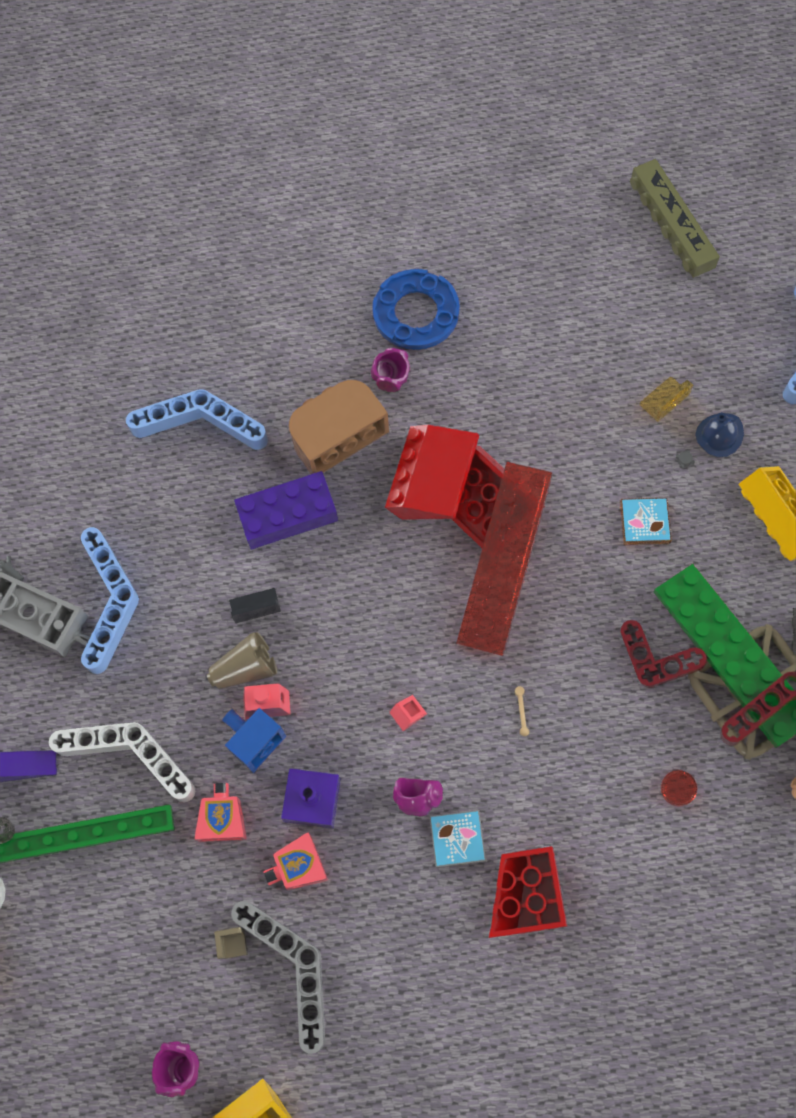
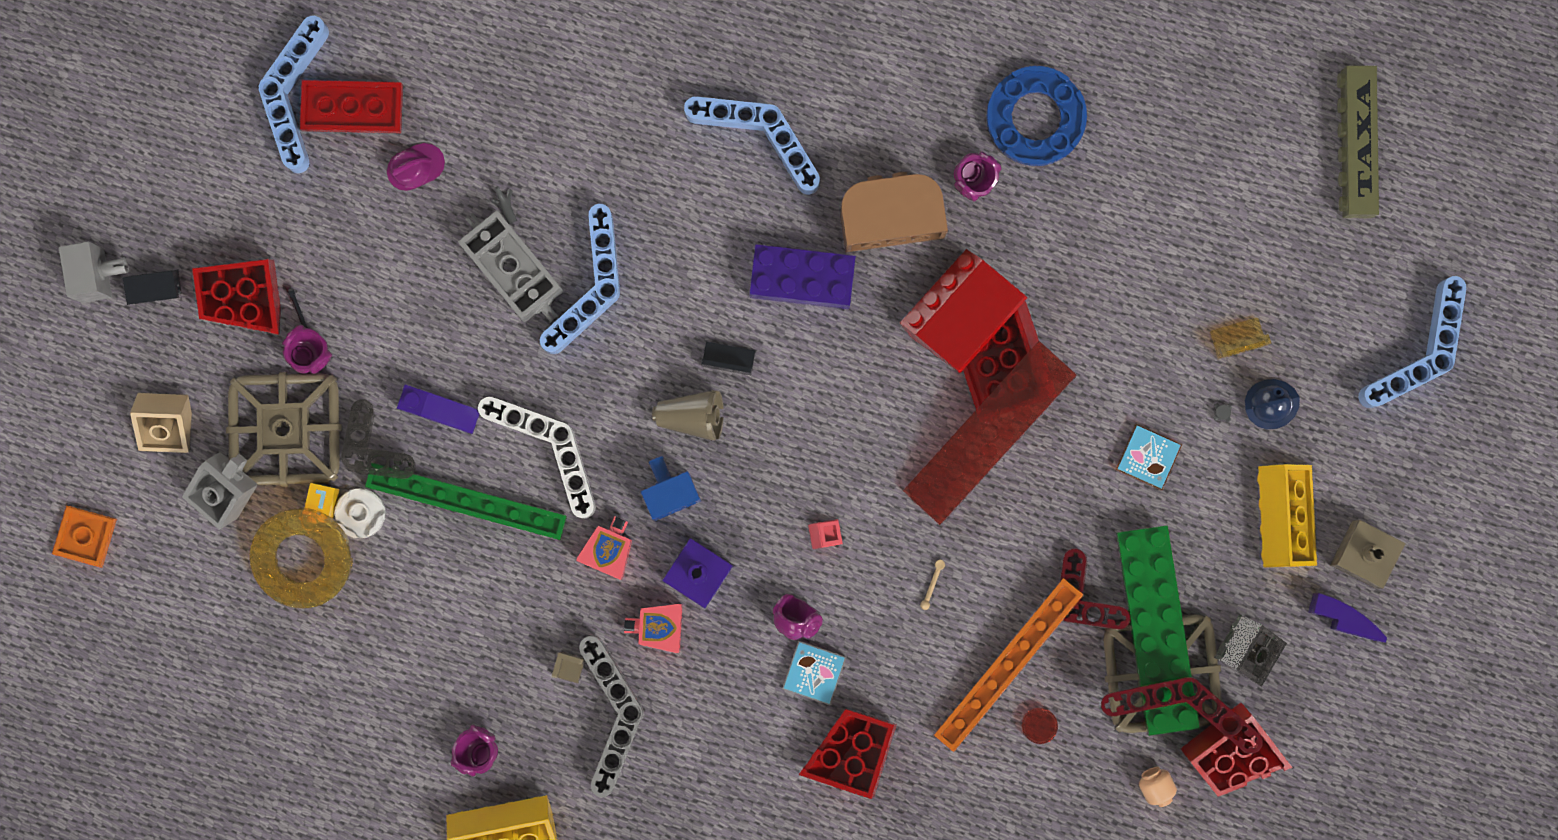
camera: 20 degrees right, 15 degrees up
(267, 699) = (696, 461): coral torso -> none
(623, 748) = (1008, 665): none -> orange plate

